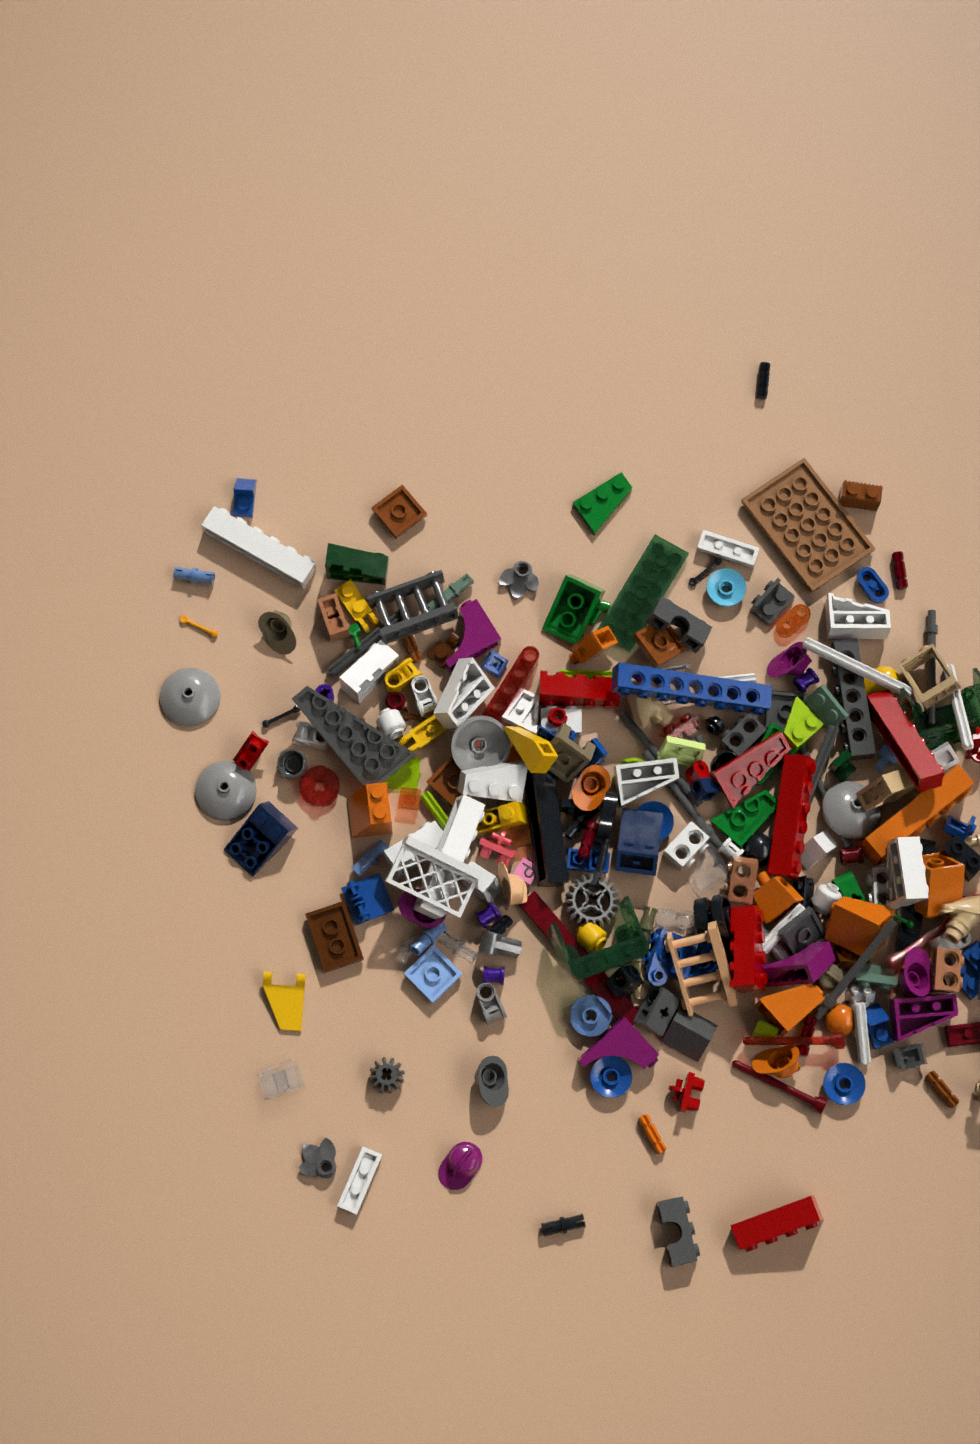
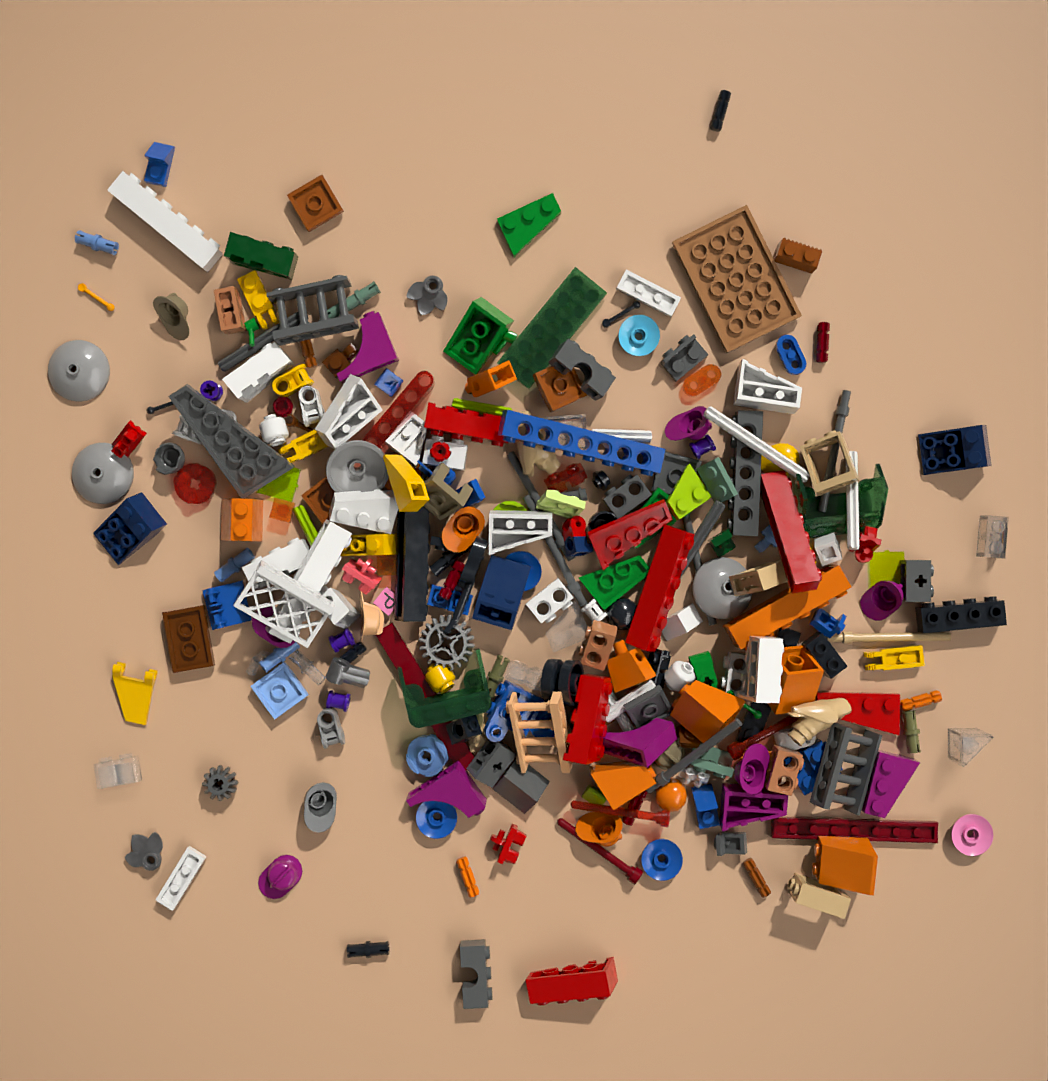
camera: 10 degrees right, 15 degrees up
(851, 855) = (713, 634): dark red bush -> none
(861, 1030) = (688, 815): white axle -> none

